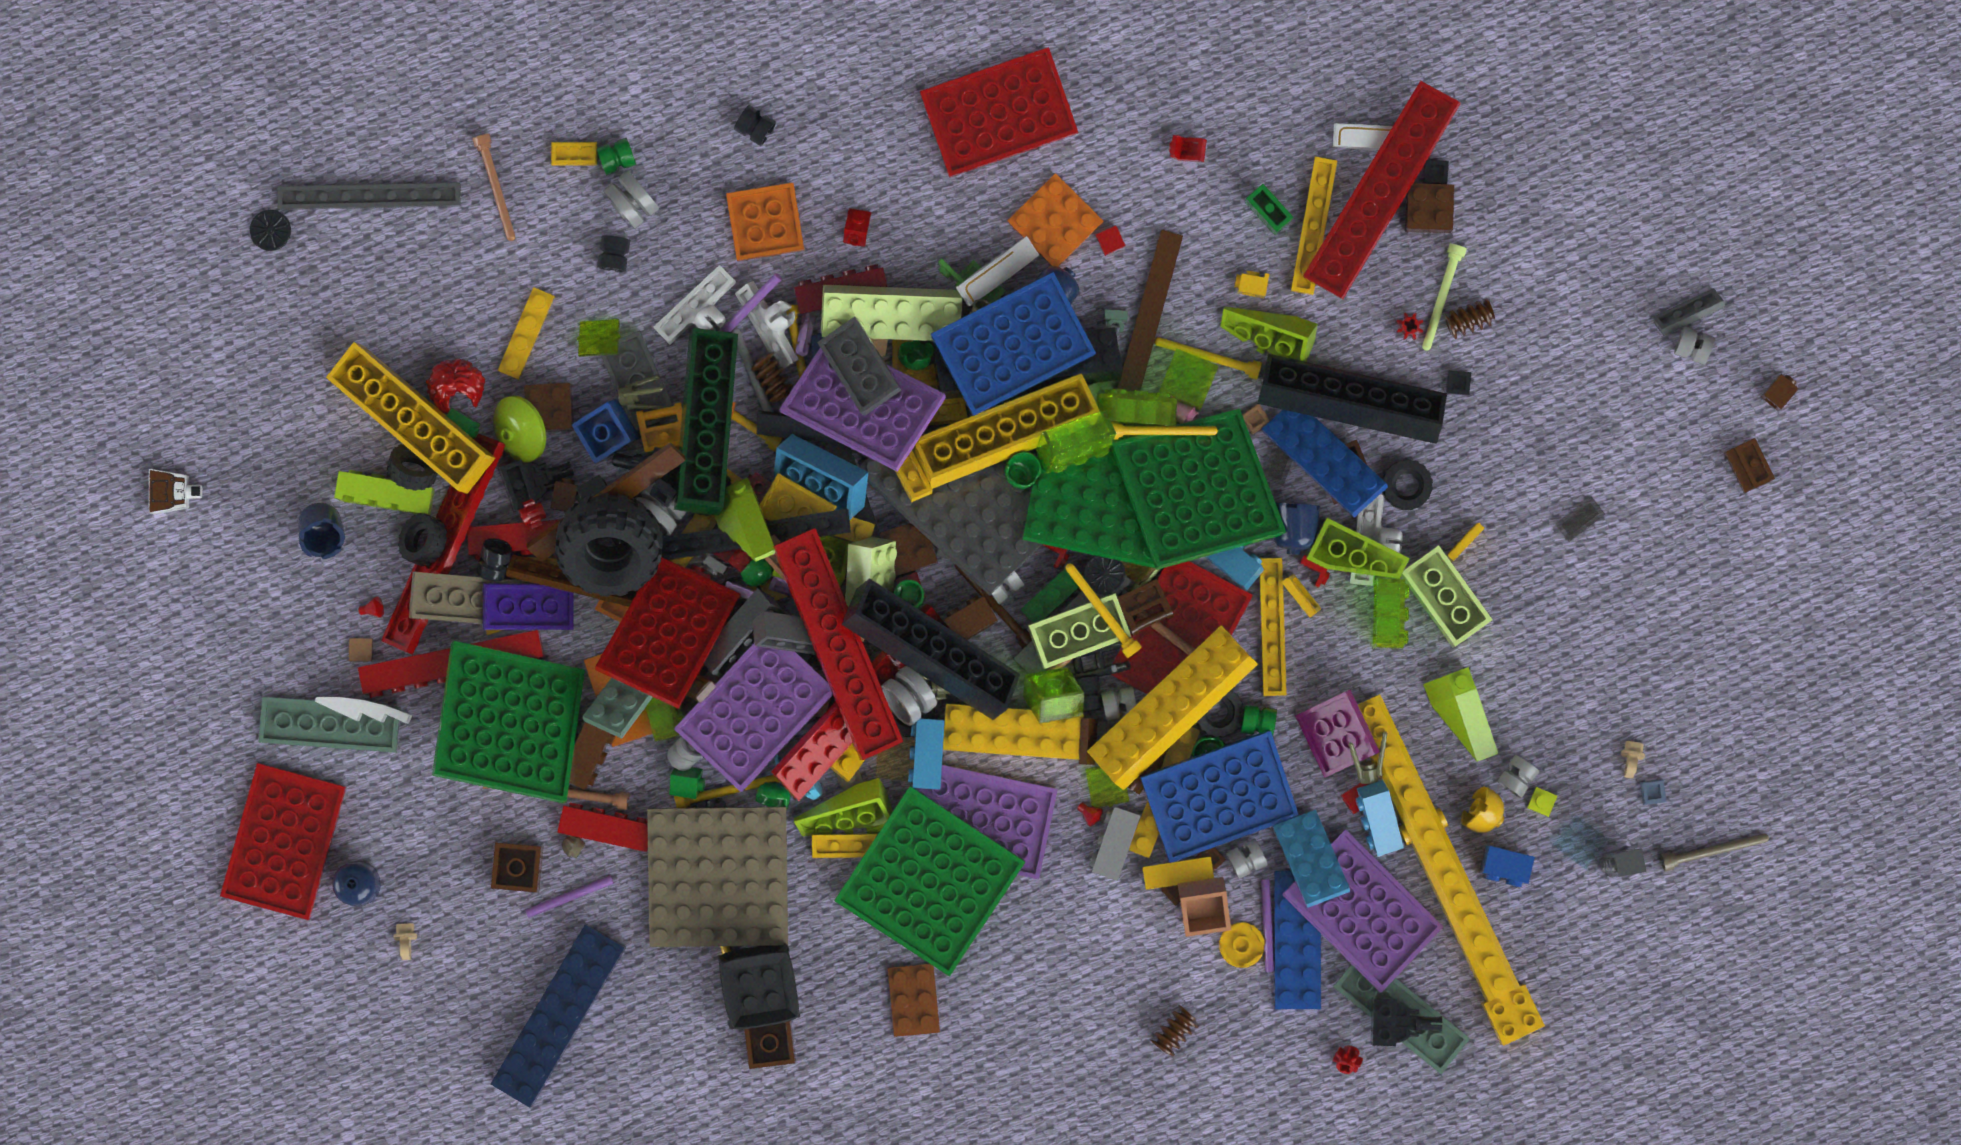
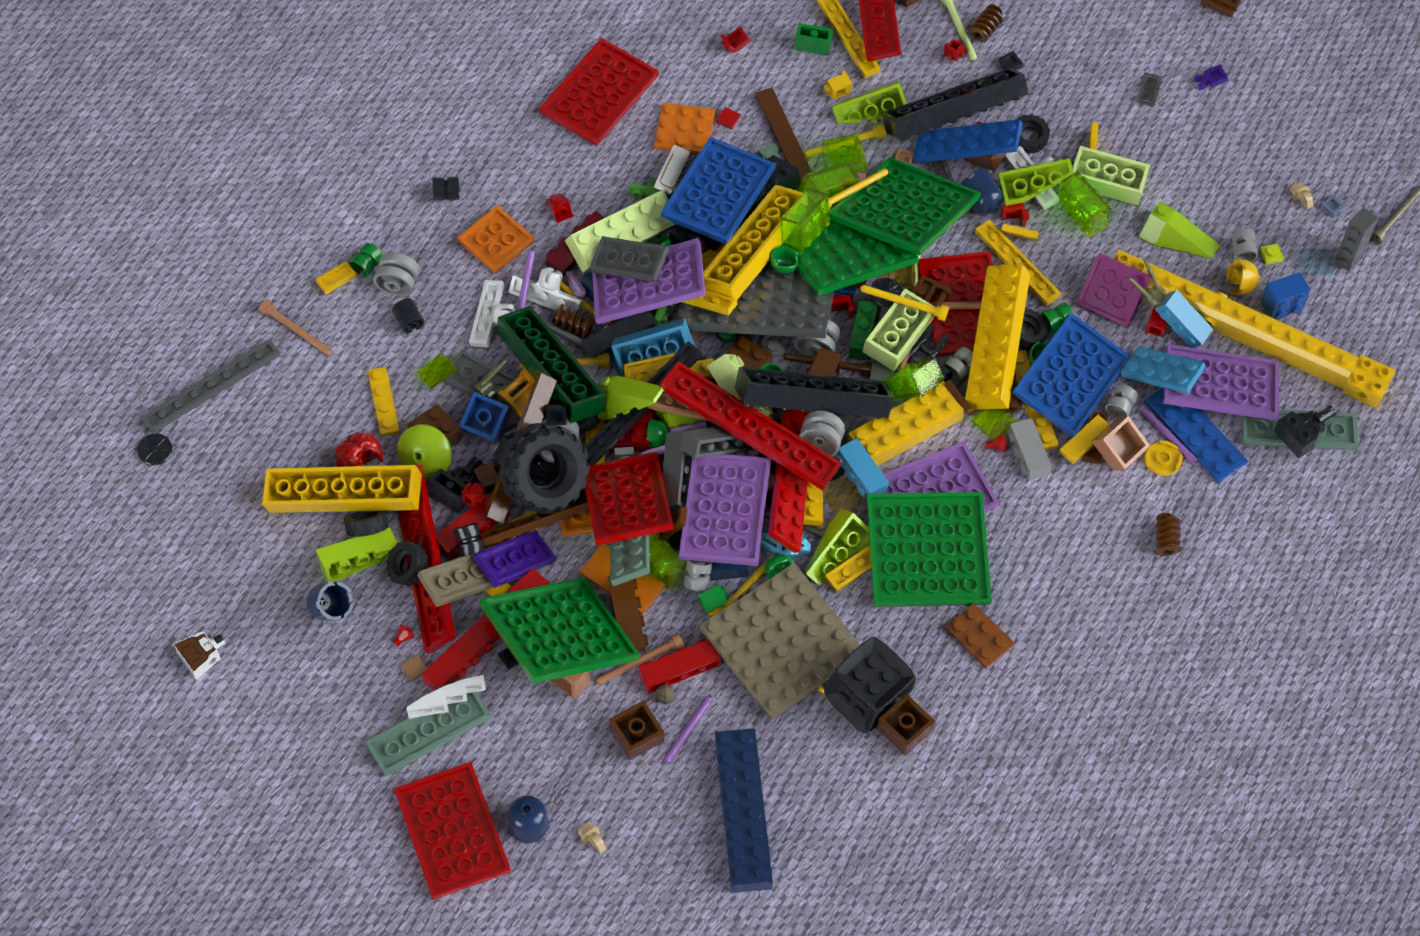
camera: 40 degrees left, 25 degrees down
(1238, 566) = (960, 238): dark azure brick -> none
(1348, 1059) = (1292, 477): red gear -> none
(1660, 554) = (1212, 76): none -> dark purple plate

